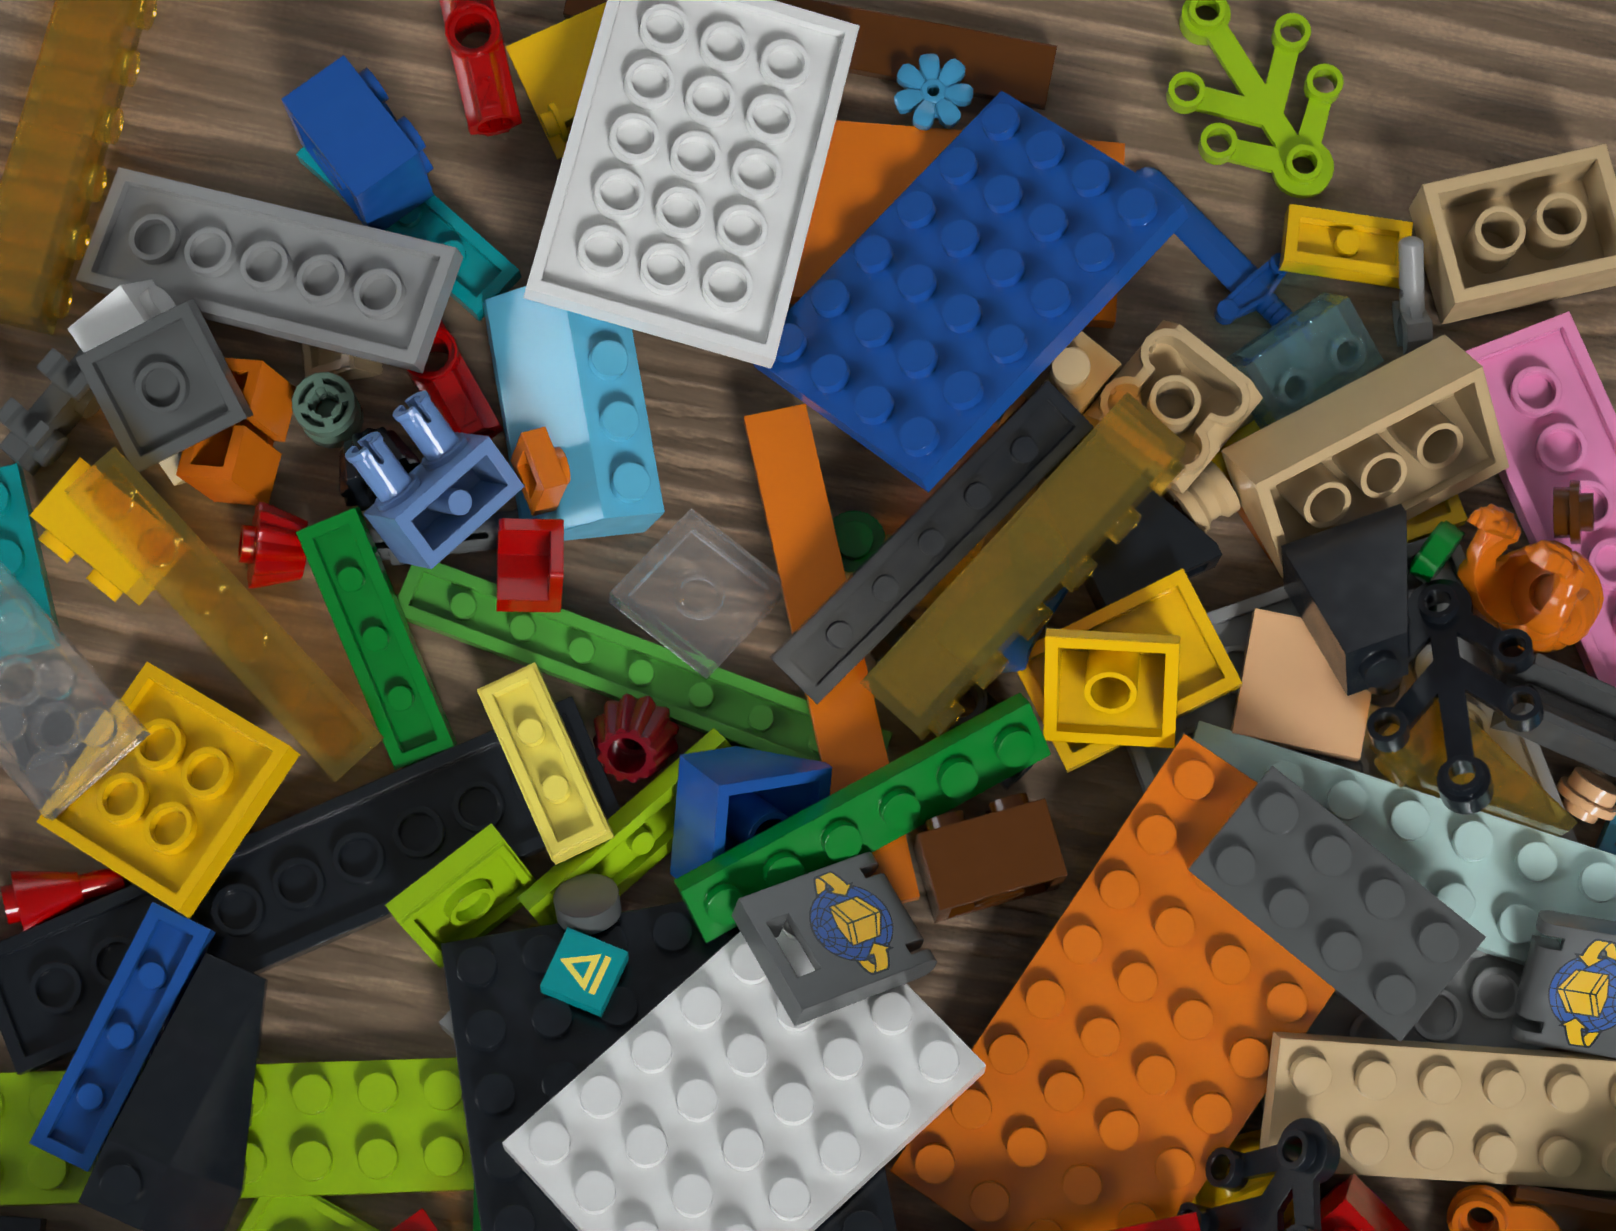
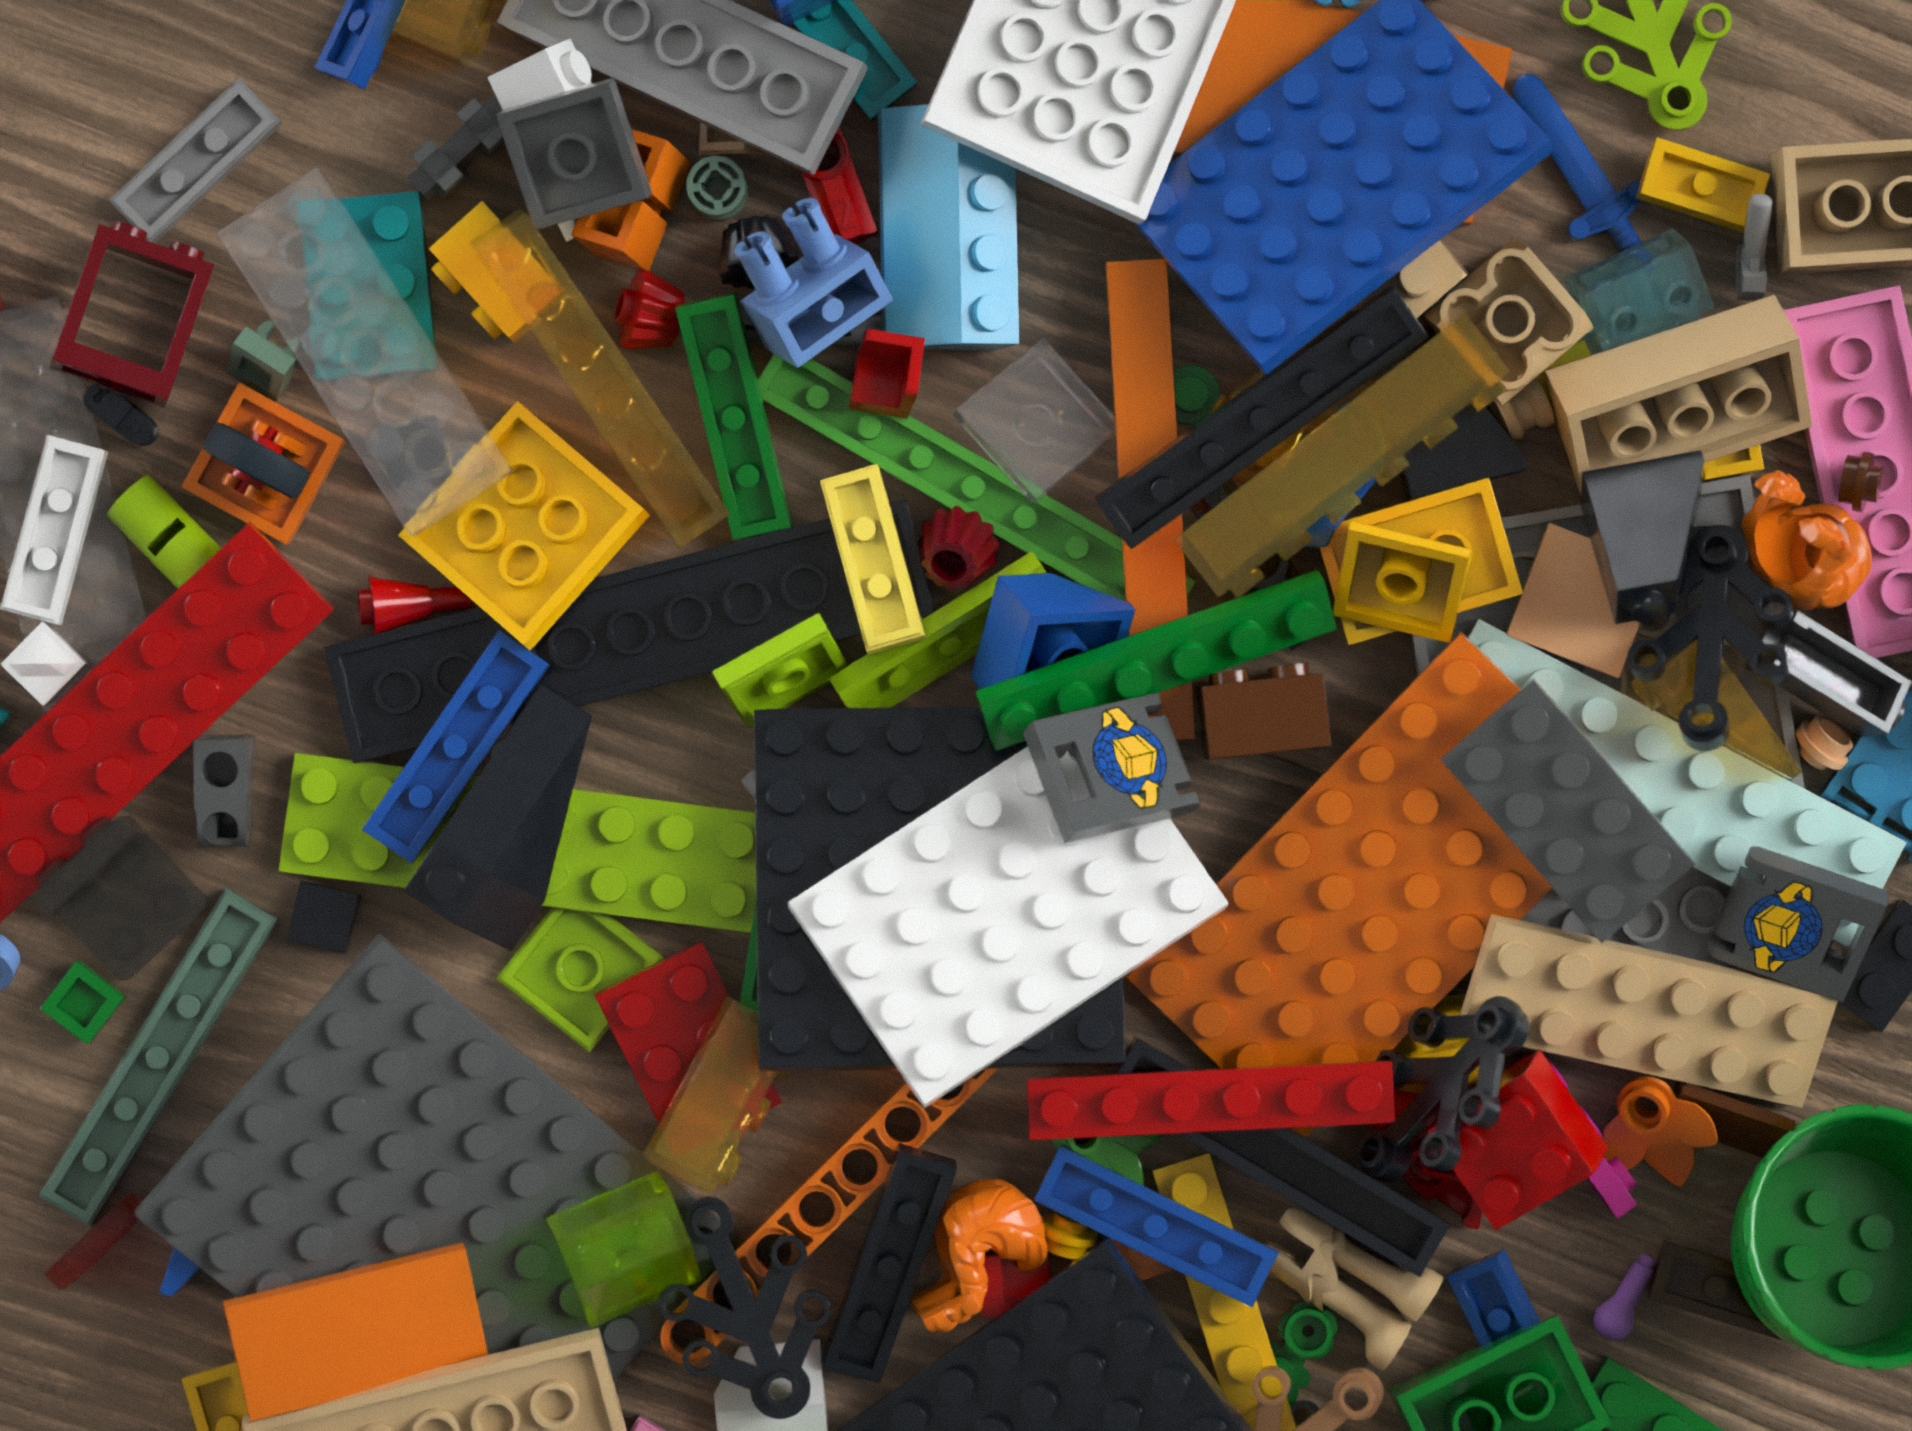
camera: 10 degrees right, 10 degrees up
(541, 470) = (912, 289): orange plate -> none
(584, 972) = (881, 759): teal tile -> none
(587, 903) = (892, 696): dark grey tile -> none
(1436, 551) = (1726, 498): green tile -> none

